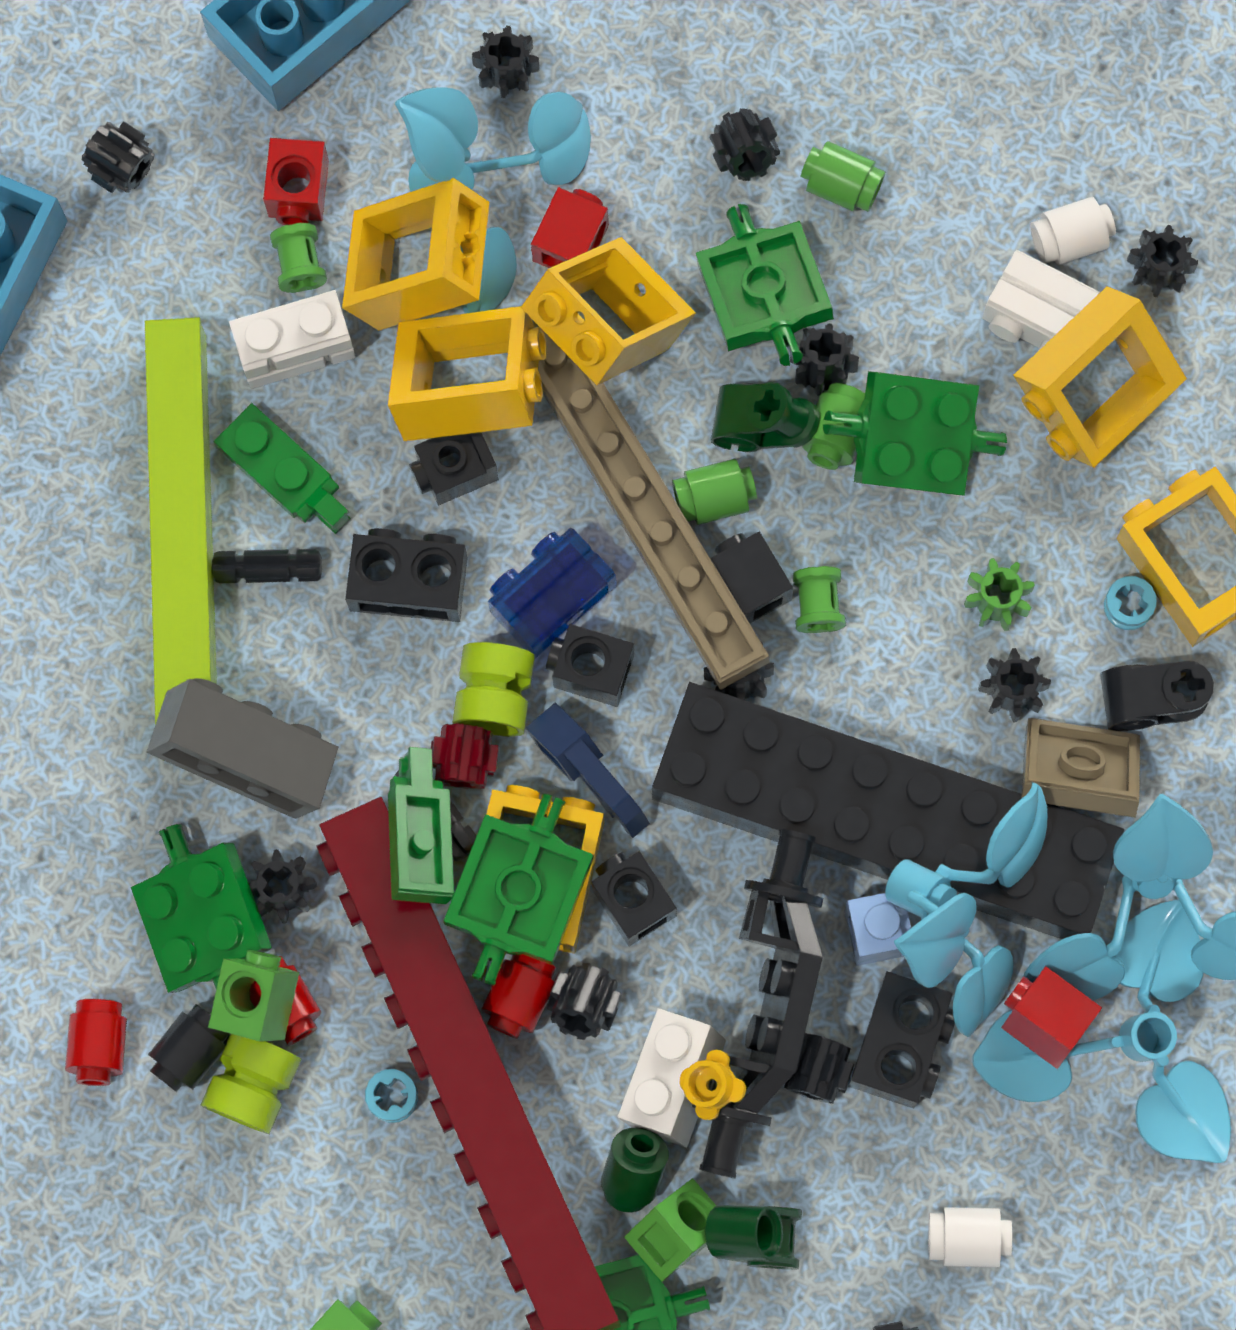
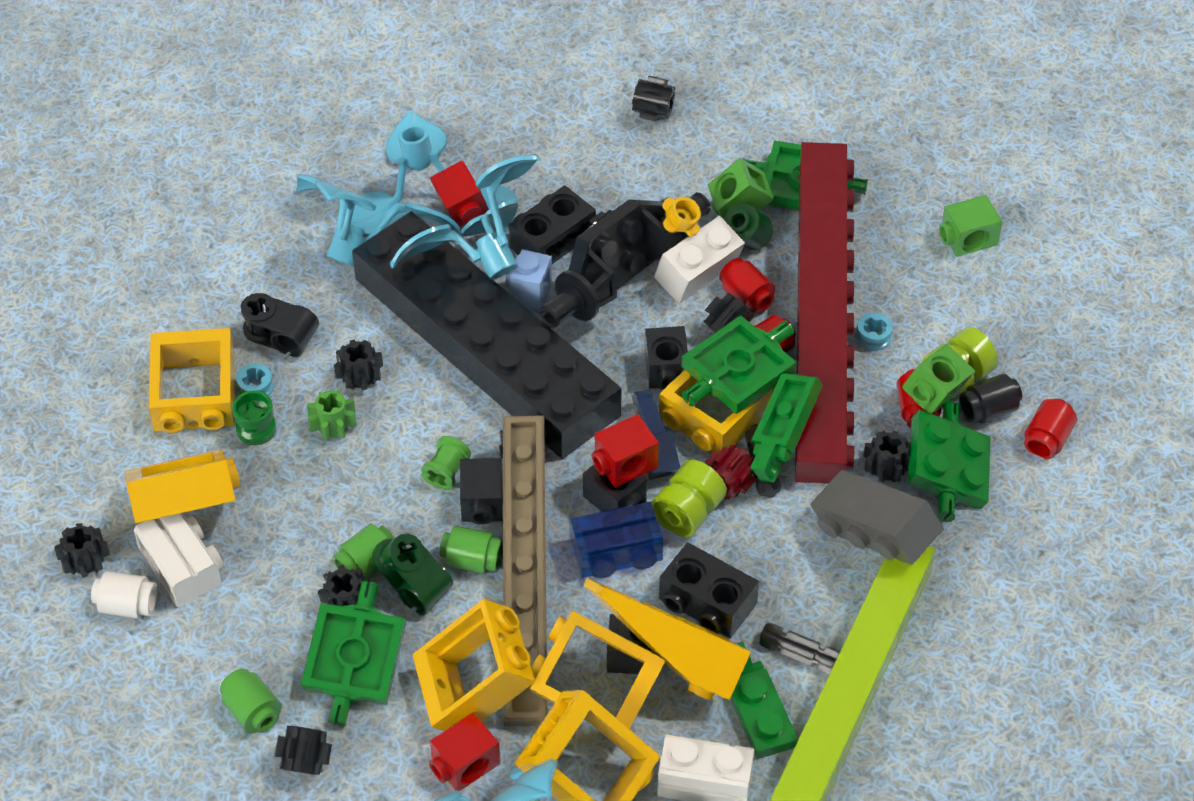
camera: 155 degrees left, 25 degrees down
(396, 450) = (690, 650): none -> yellow wedge
(589, 676) = (625, 451): none -> red brick
(589, 1076) = (747, 284): none -> red brick
(753, 1235) = (695, 170): dark green piece -> none
(915, 433) = (319, 515): green plate -> none
(969, 1237) = (575, 133): white brick -> none
(1083, 766) = (352, 298): dark tan tile -> none
(1097, 531) = (254, 417): none -> green wheel

